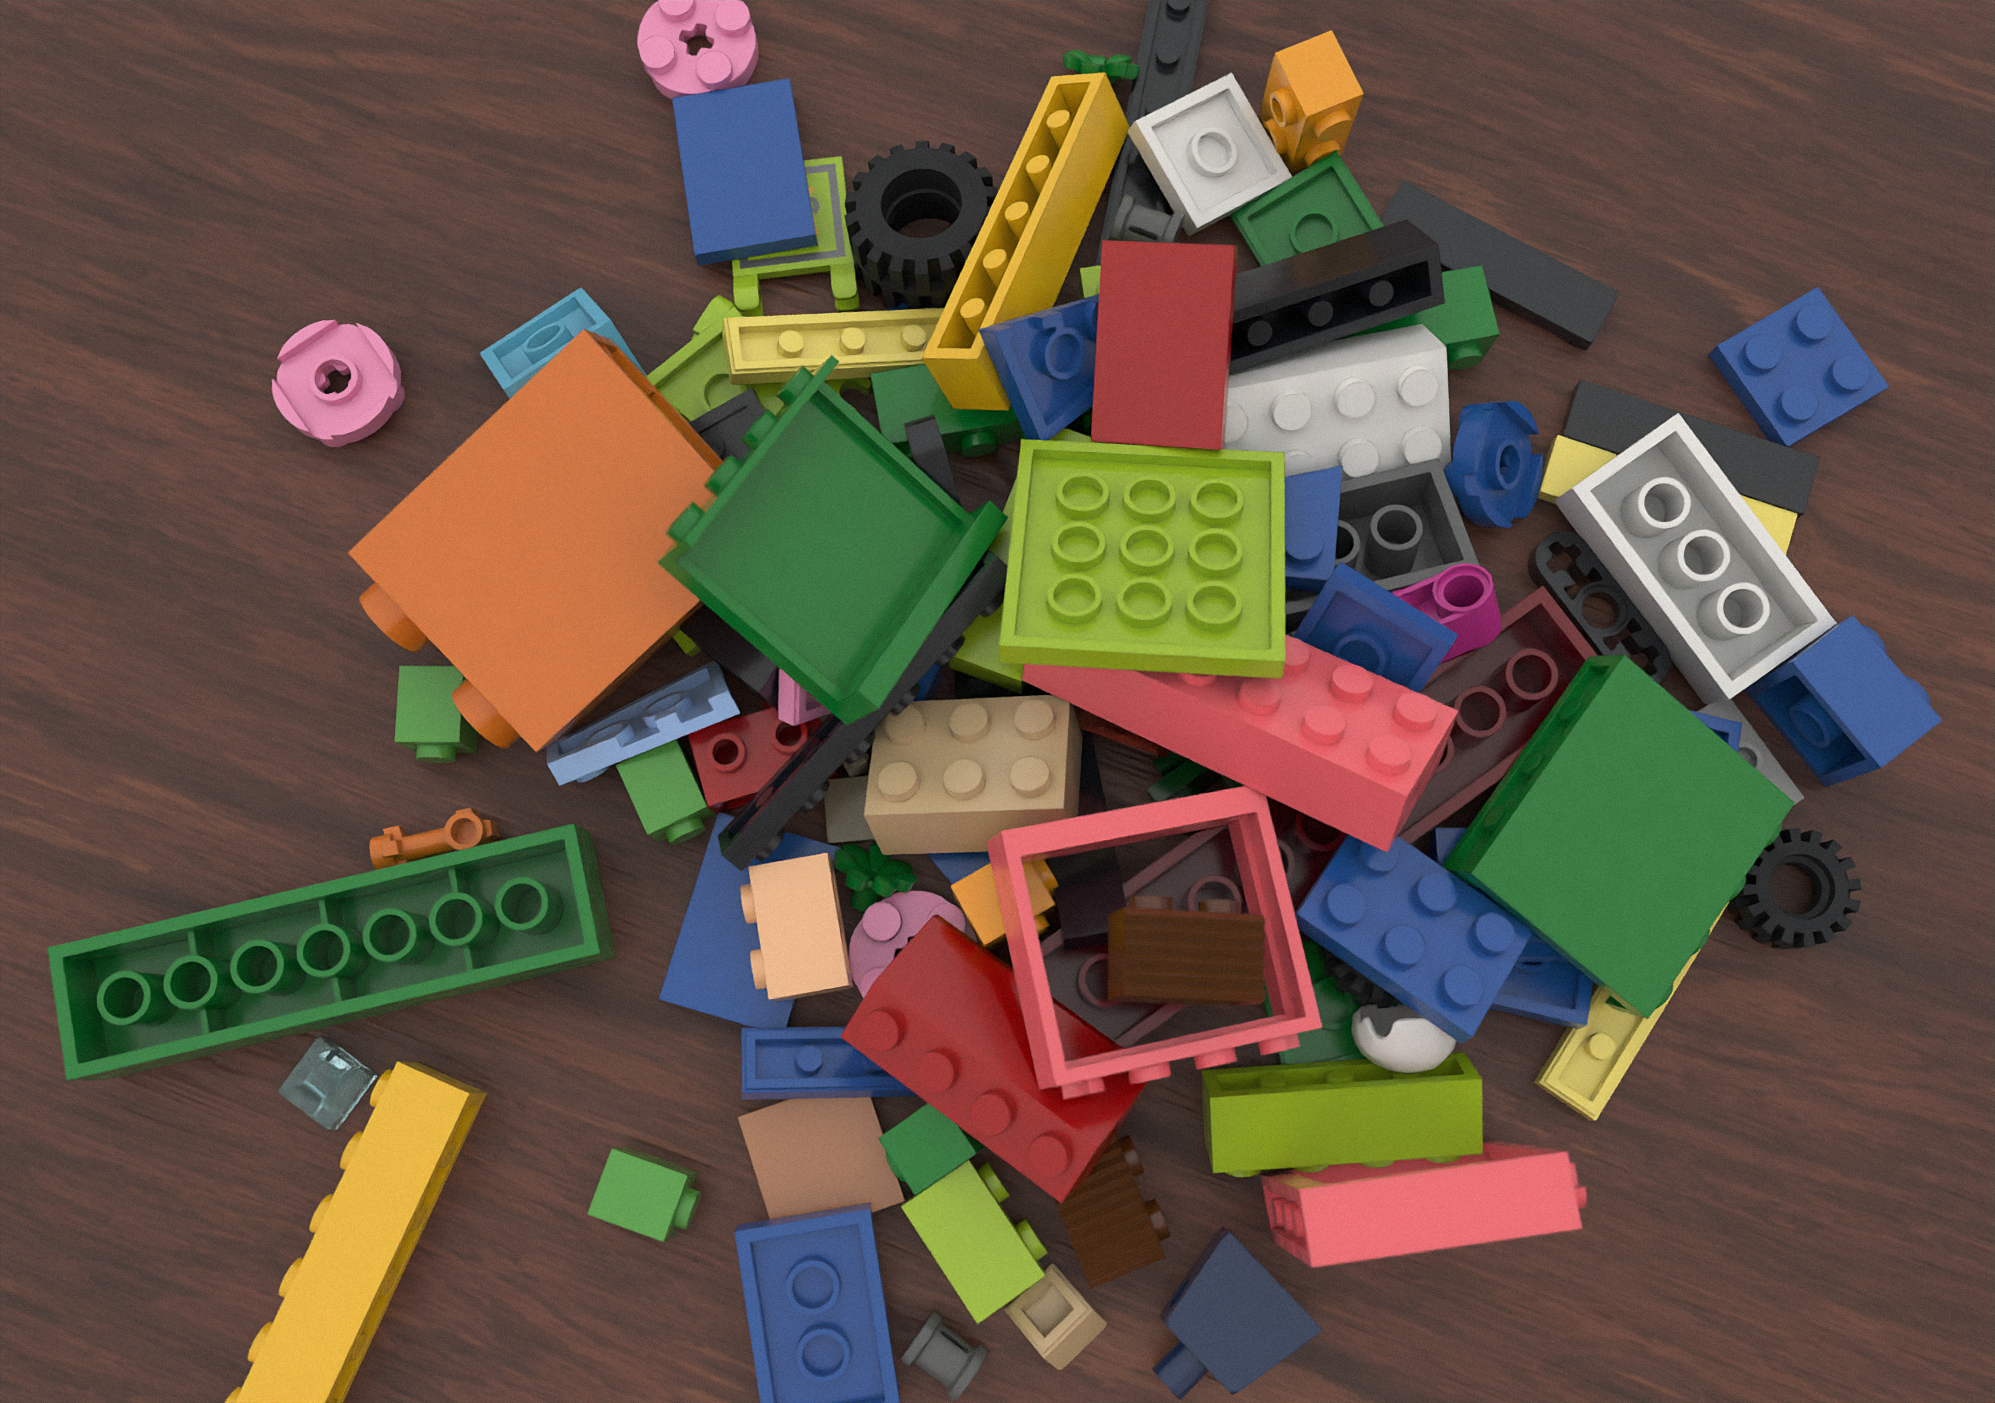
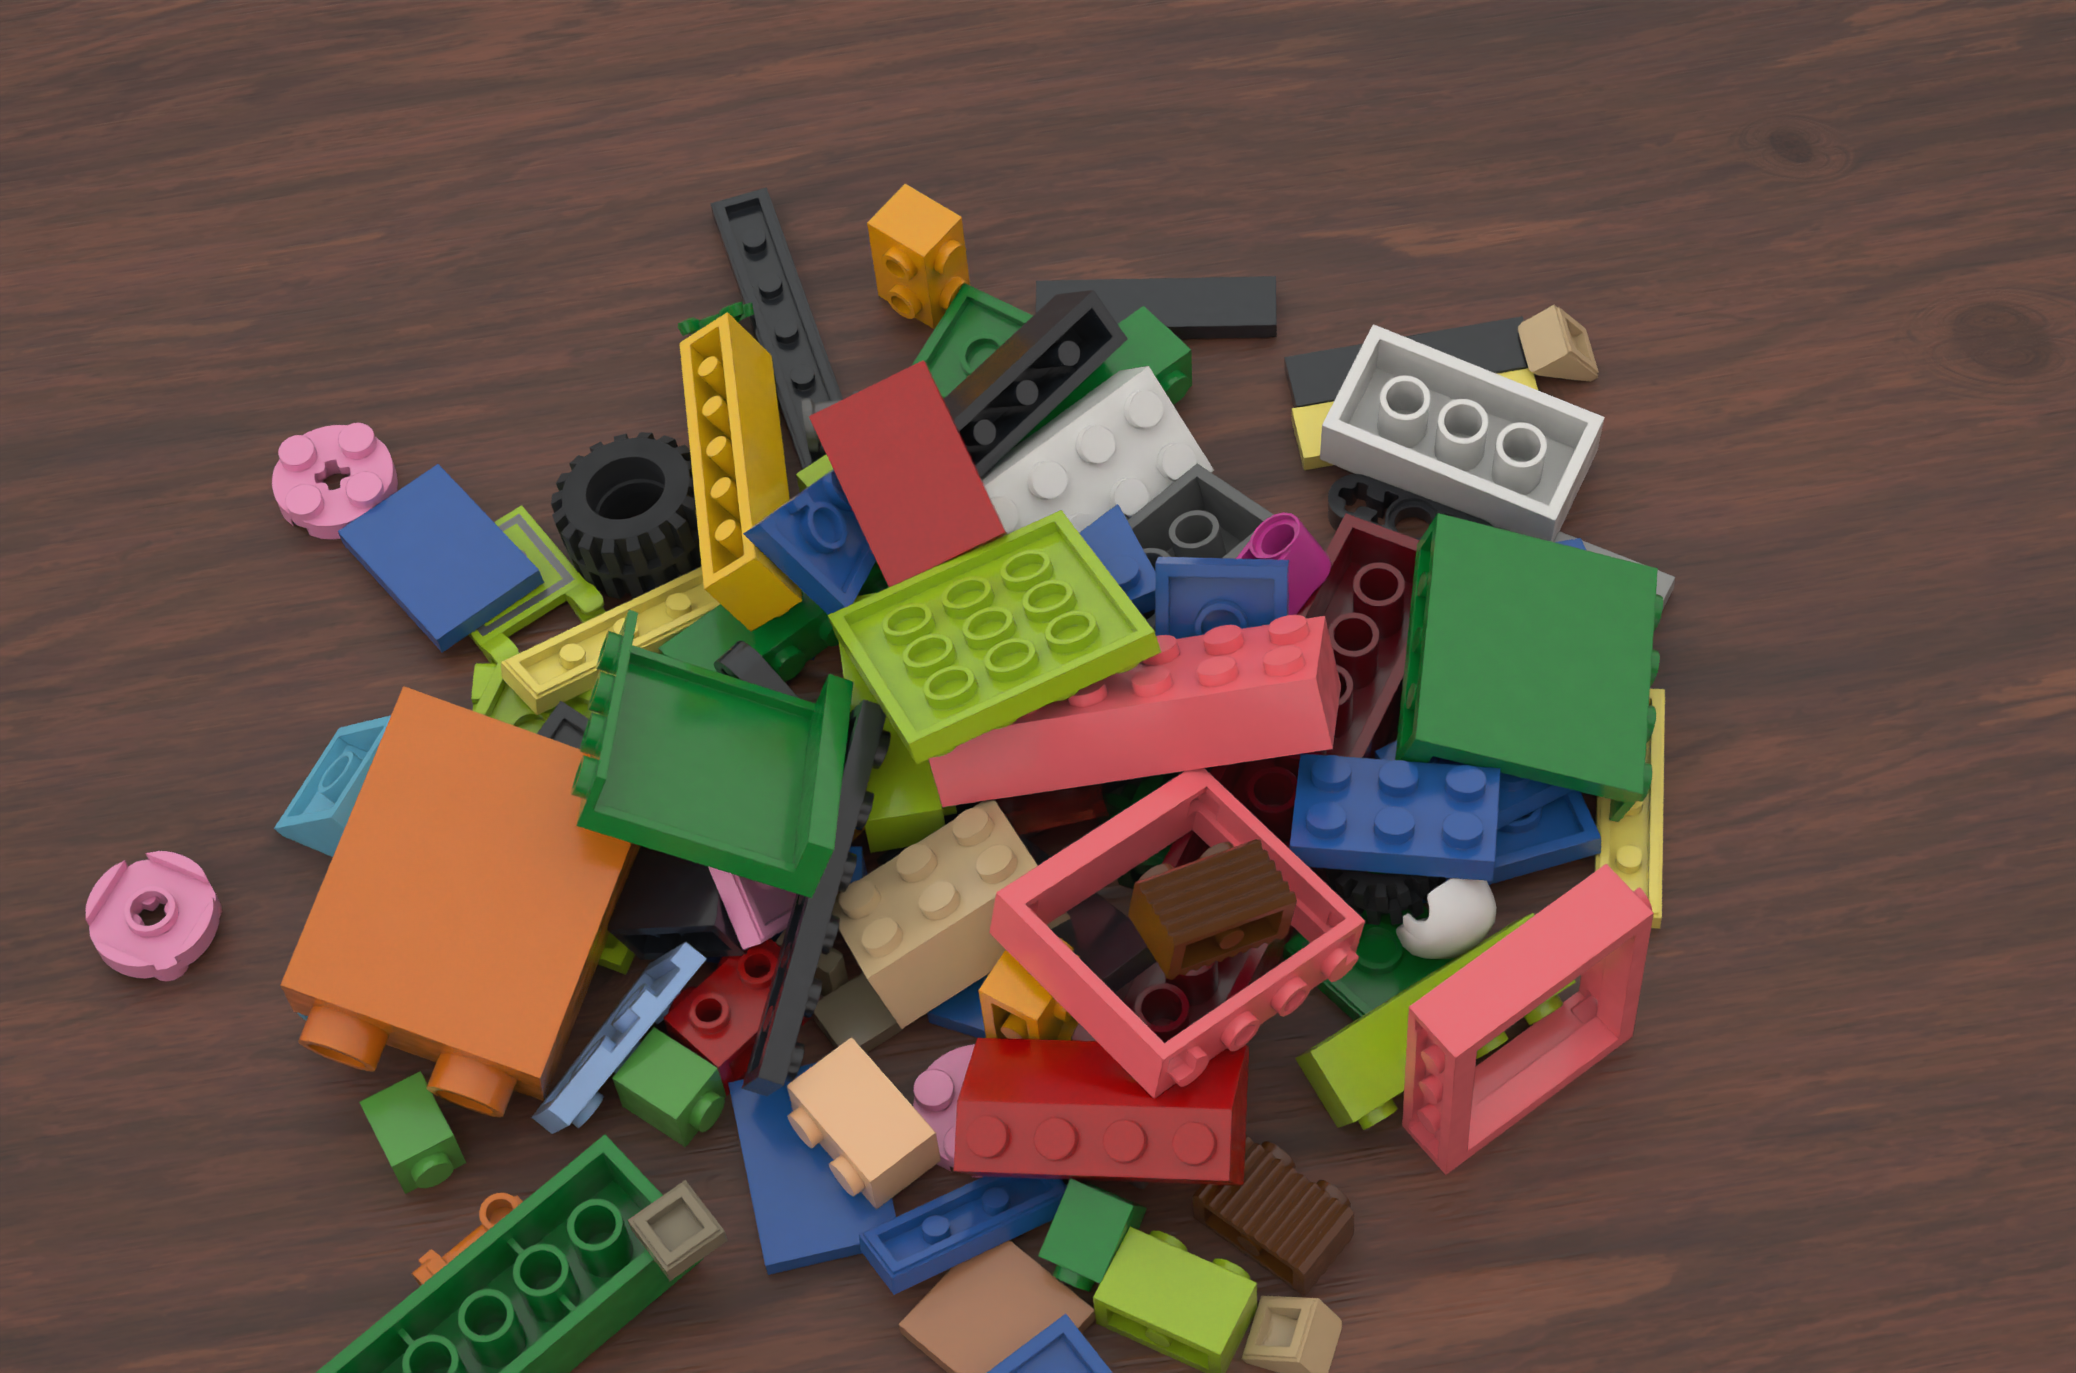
camera: 25 degrees left, 20 degrees down
(582, 954) = (677, 1230): none -> dark tan tile
(872, 874) = (904, 1059): green plant -> none
(1209, 153) = (852, 335): white plate -> none
(1230, 1320) = (1446, 1242): dark blue torso -> none
(1494, 464) = (1249, 450): blue plate -> none
(1798, 369) = (1463, 262): blue plate -> none
(1830, 888) = (1716, 621): black tyre -> none
(1833, 506) = (1557, 346): none -> tan slope
(1844, 703) = (1650, 481): blue brick -> none

